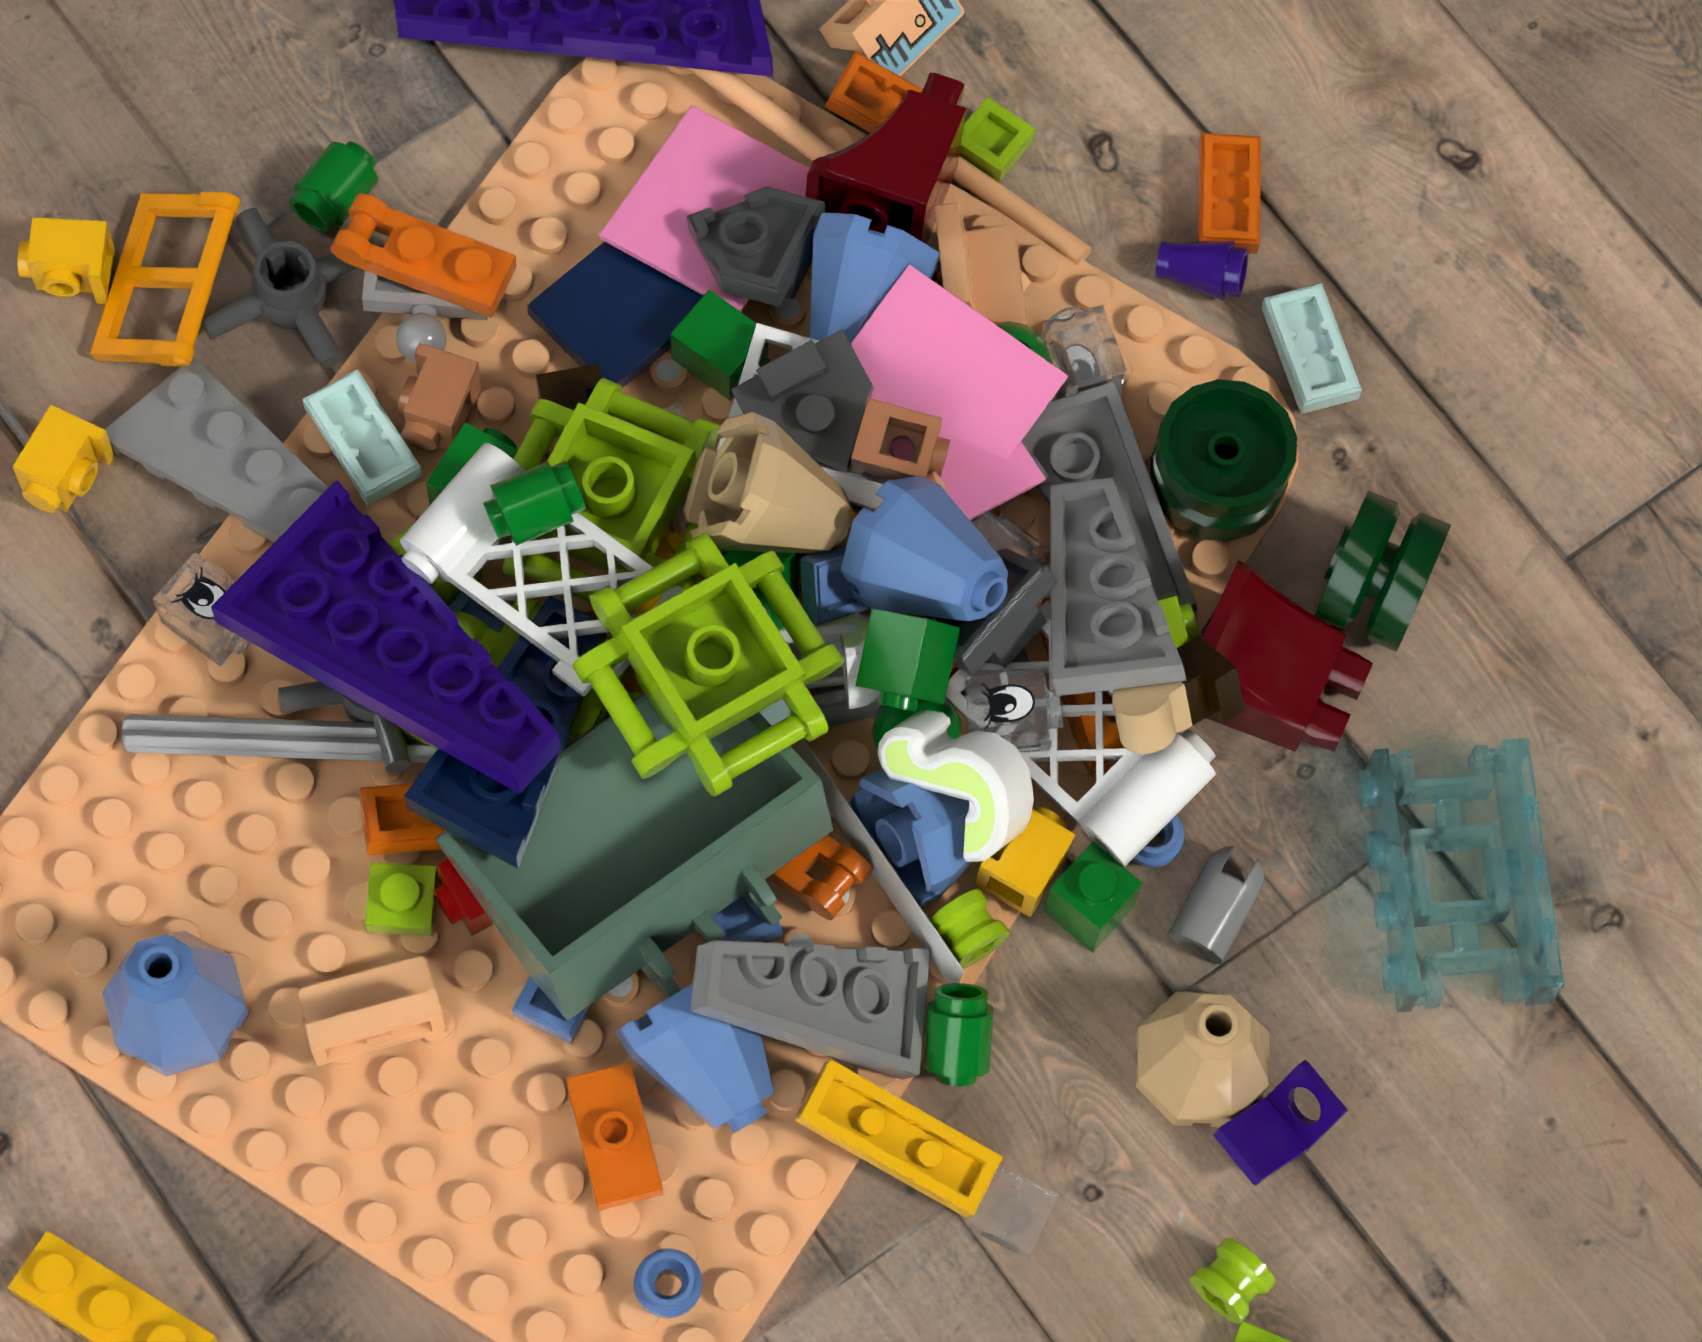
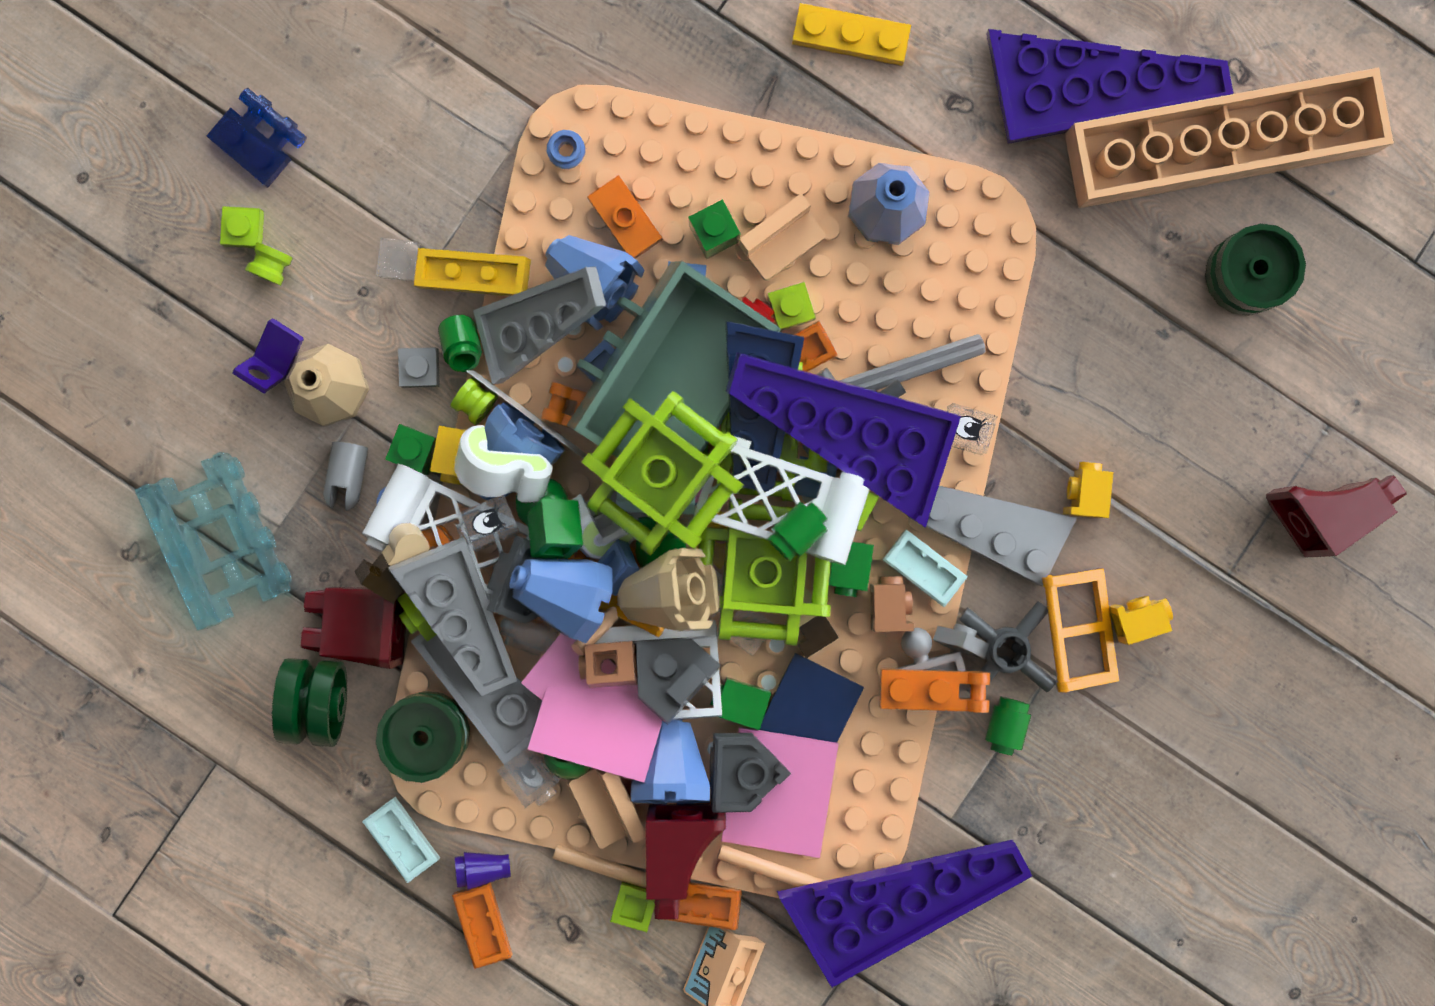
camera: 165 degrees right, 20 degrees up
(351, 318) = (961, 639): none -> light grey plate
(475, 1053) = (714, 229): none -> green brick
(1041, 1032) = (418, 367): none -> light grey plate

